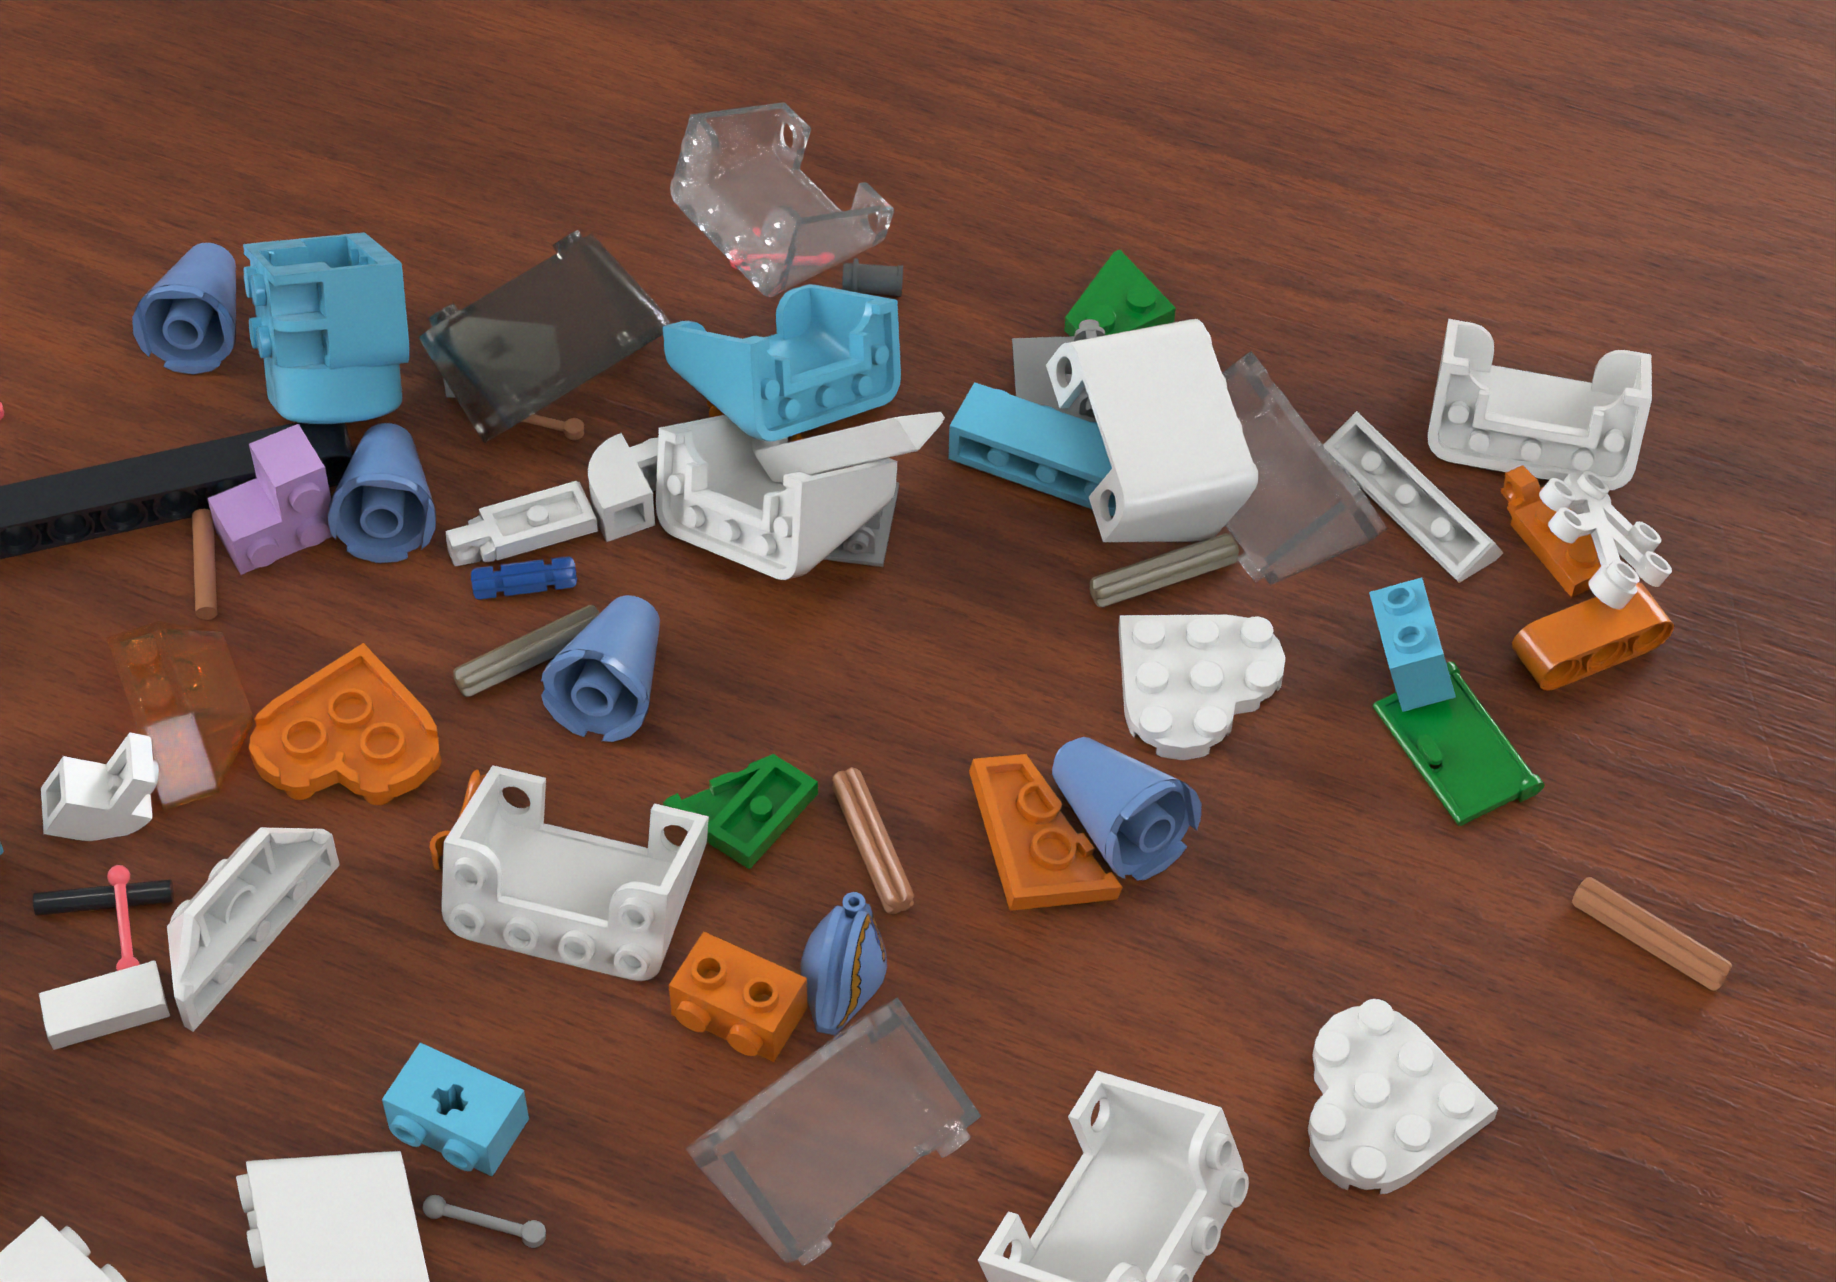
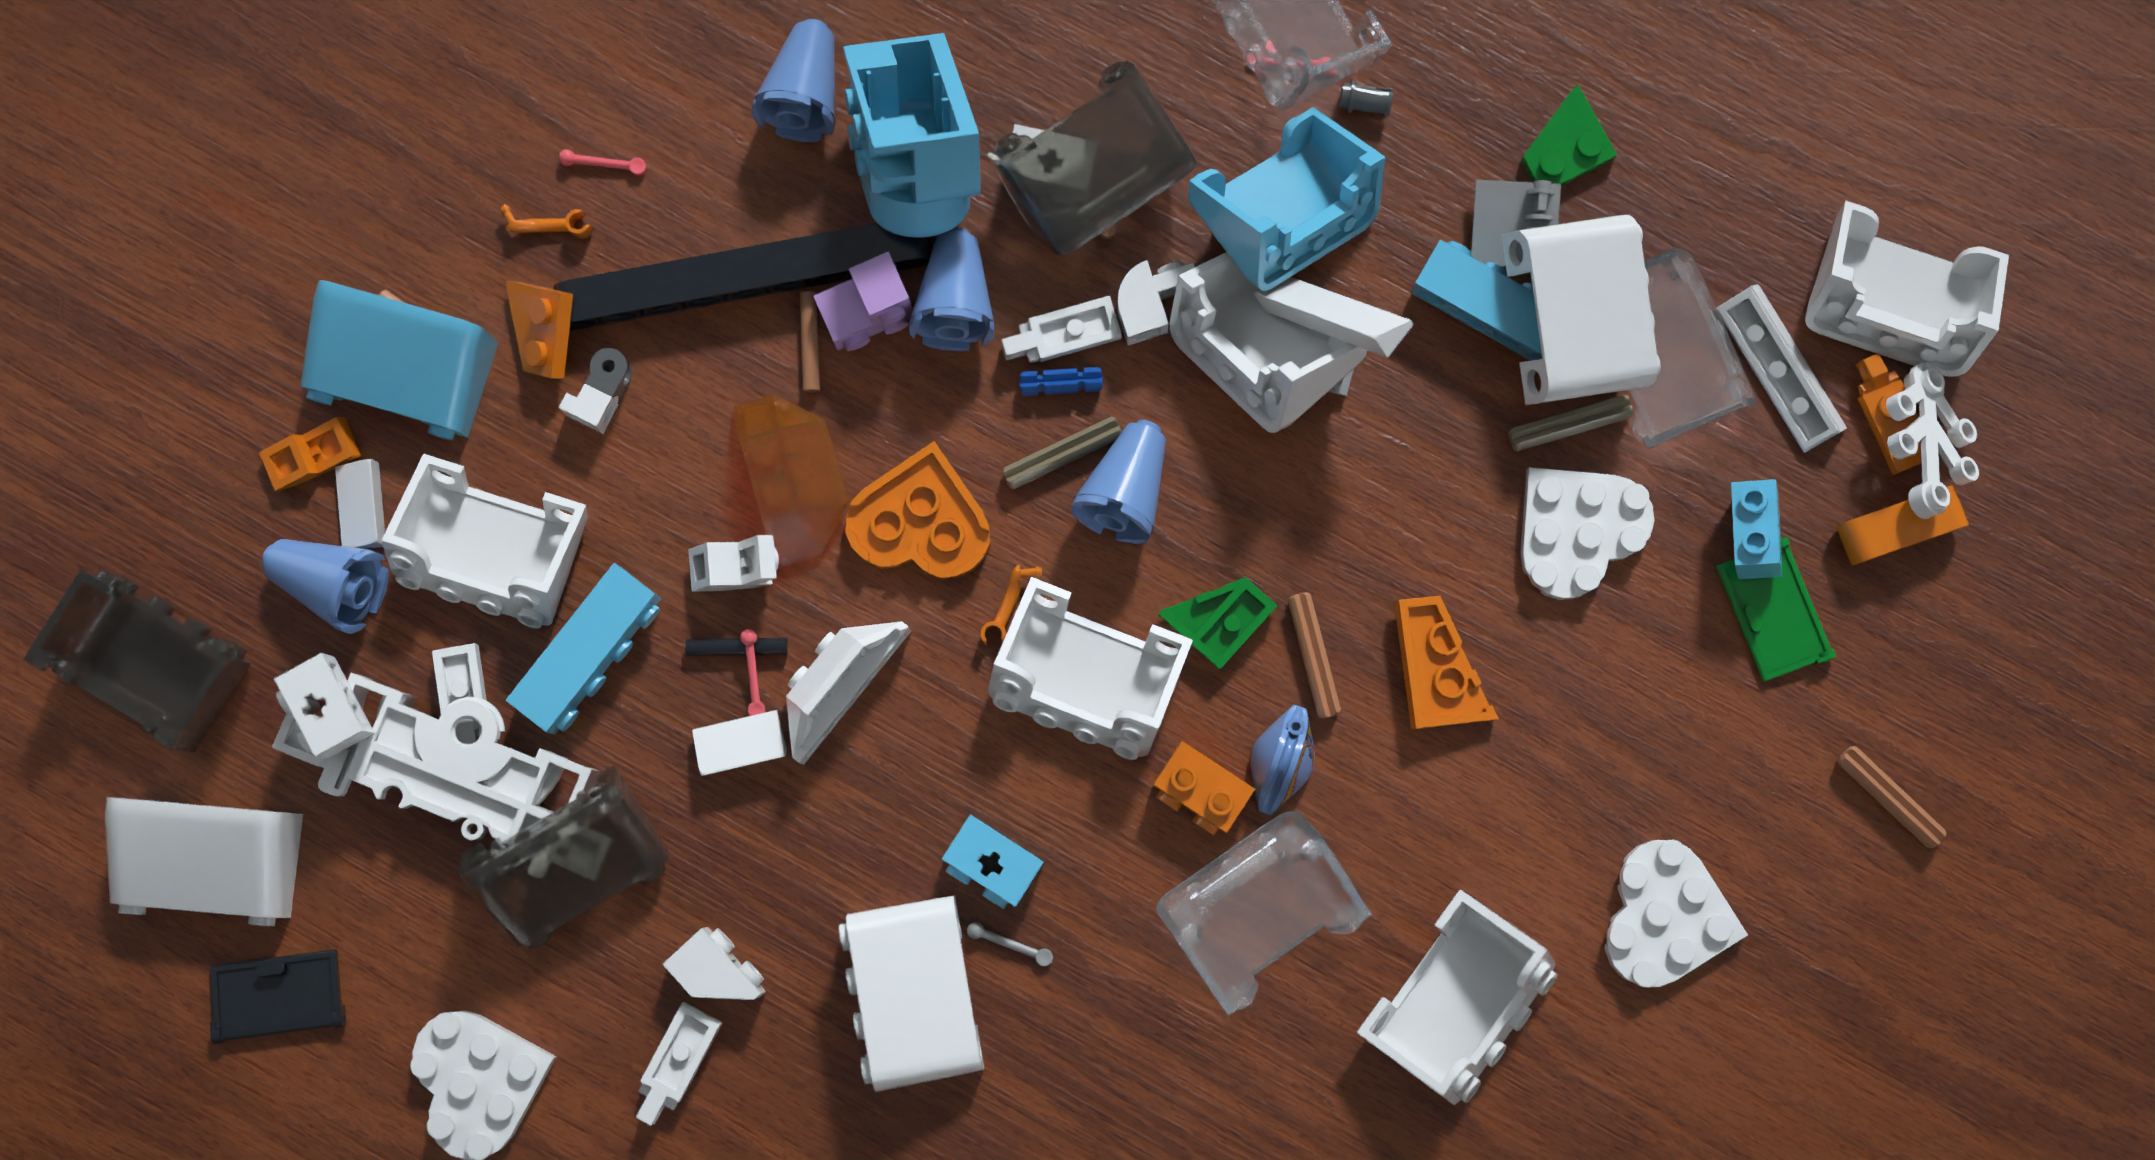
camera: 10 degrees right, 30 degrees up
(1126, 806) = (1507, 651): medium blue cone -> none

